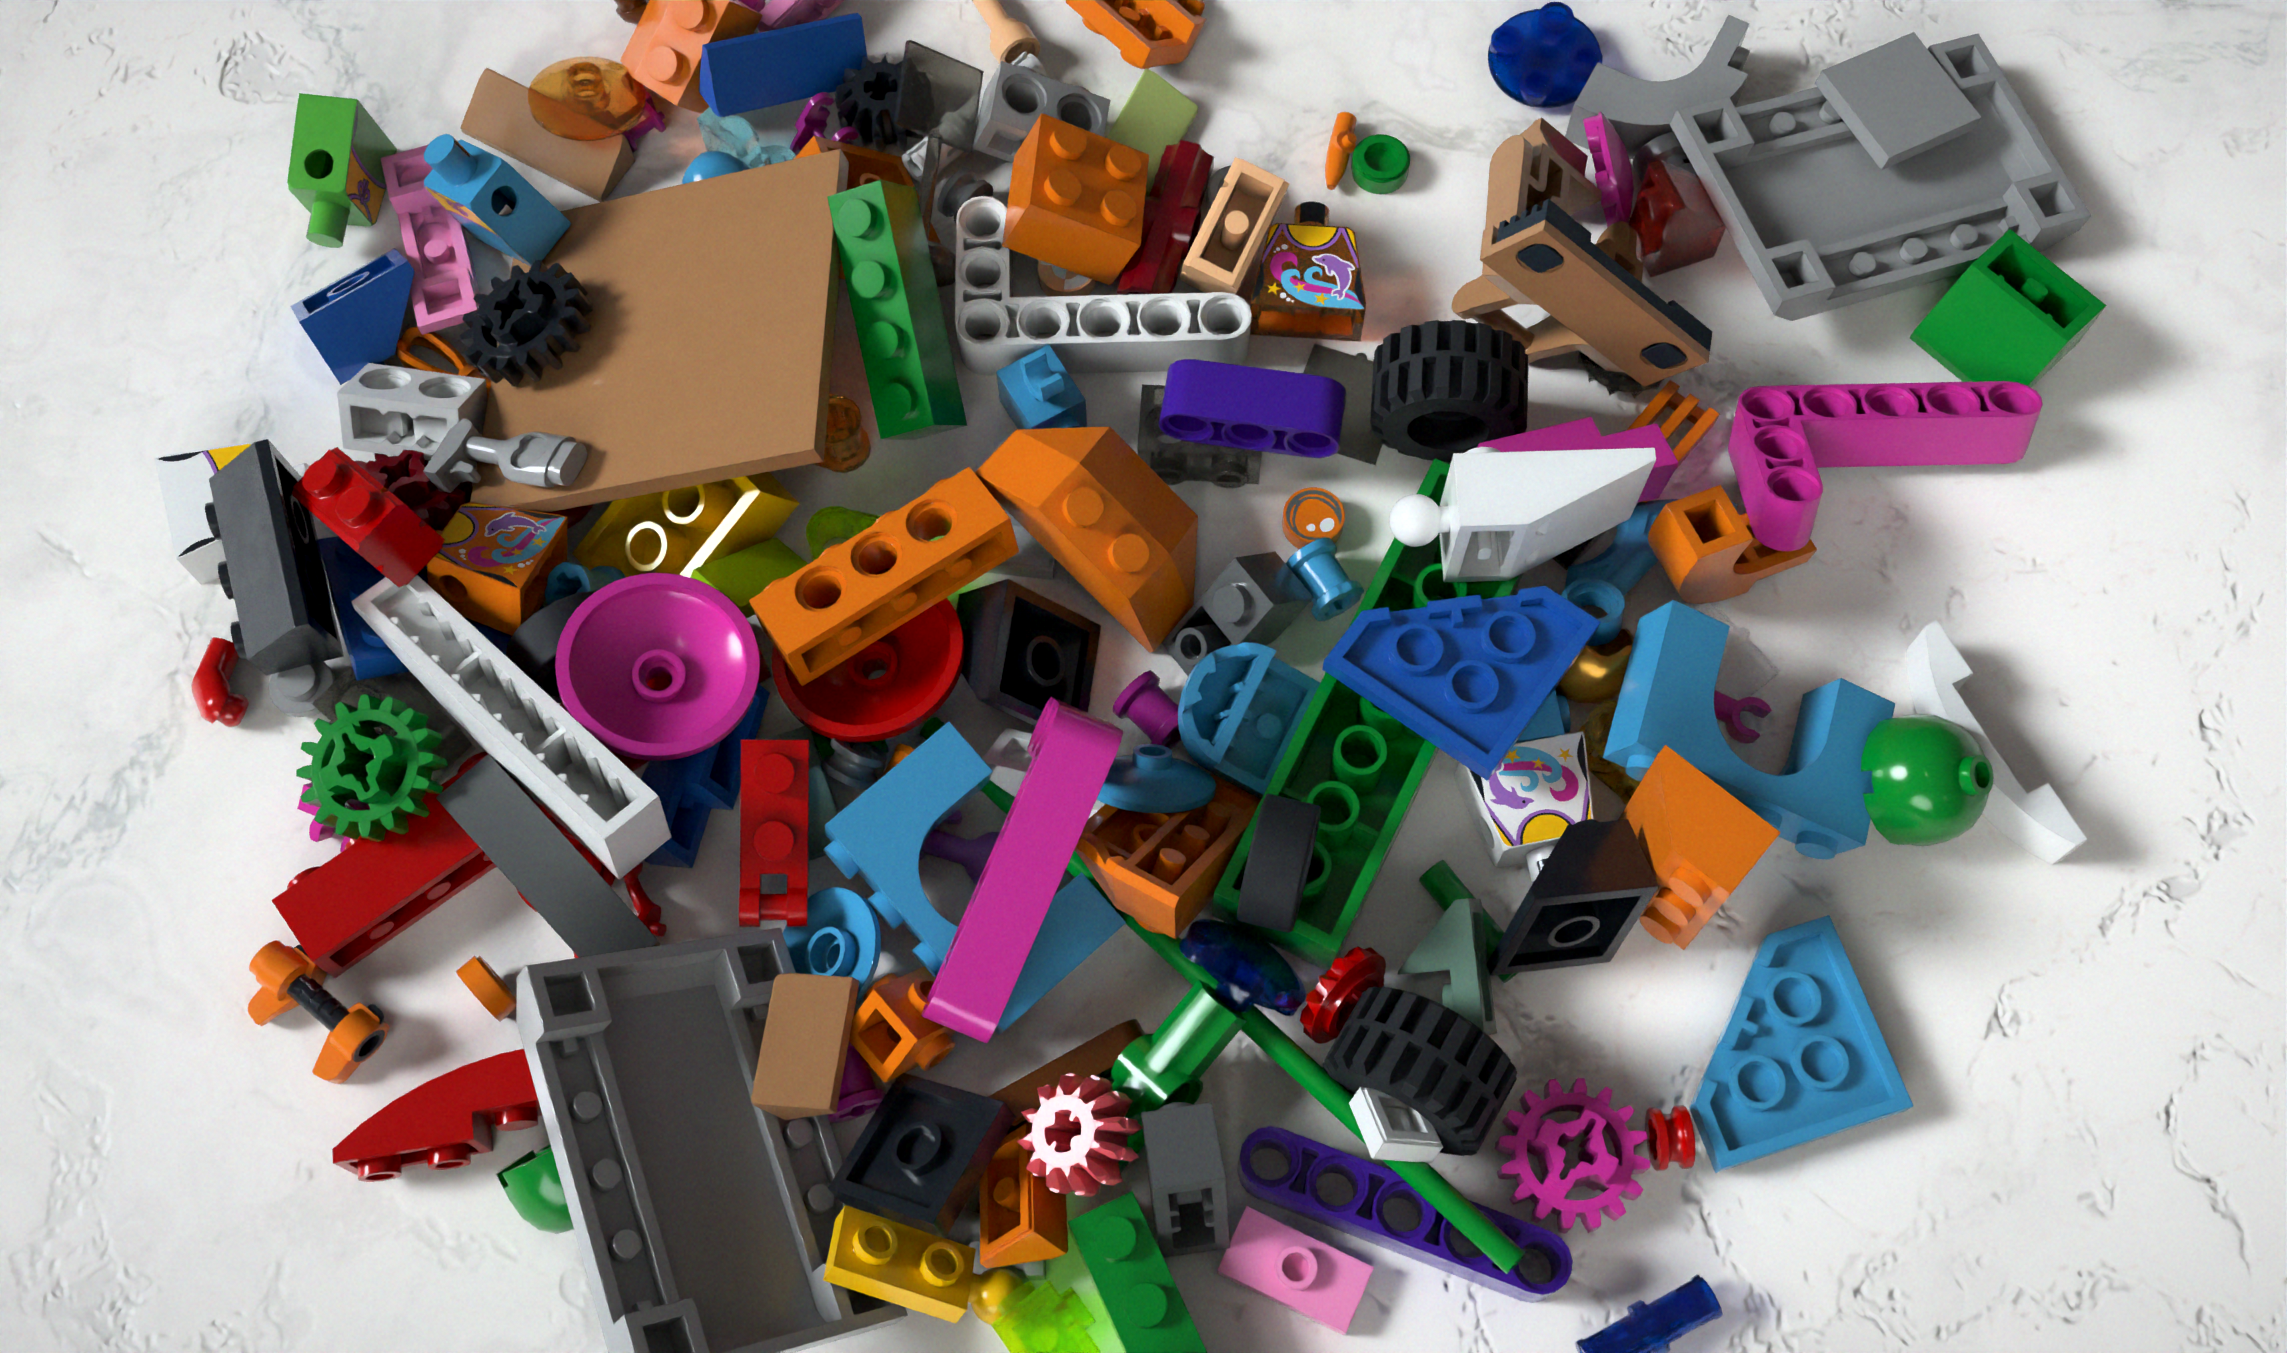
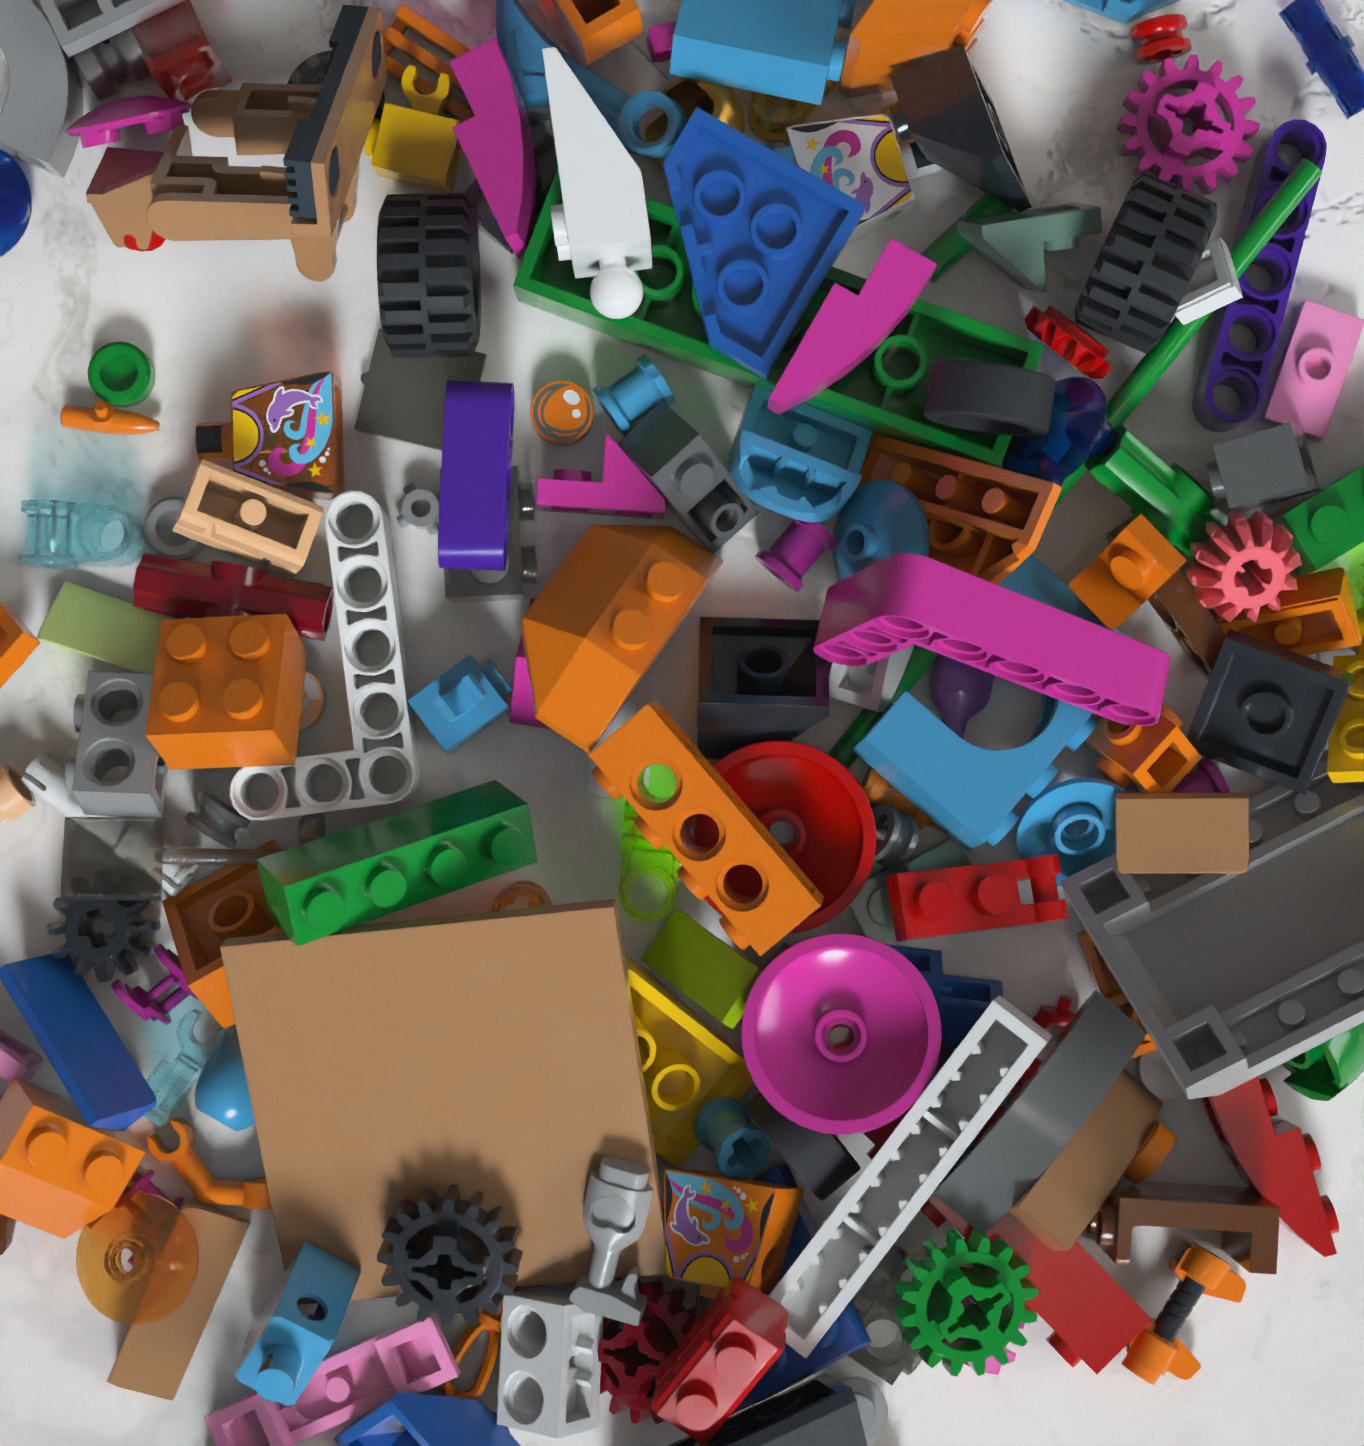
camera: 95 degrees left, 20 degrees up
(415, 1009) = (1244, 1217): none -> reddish brown panel
(480, 903) = (1089, 1166): none -> medium nougat slope
(658, 158) = (248, 1193): none -> orange arm
(1079, 1010) = (1127, 573): none -> orange slope
(1233, 528) = (621, 493): none -> dark pink slope
(1236, 114) = (70, 534): none -> clear light blue piece
(1367, 747) = (852, 325): none -> dark pink slope
(1590, 391) = (416, 142): none -> yellow brick

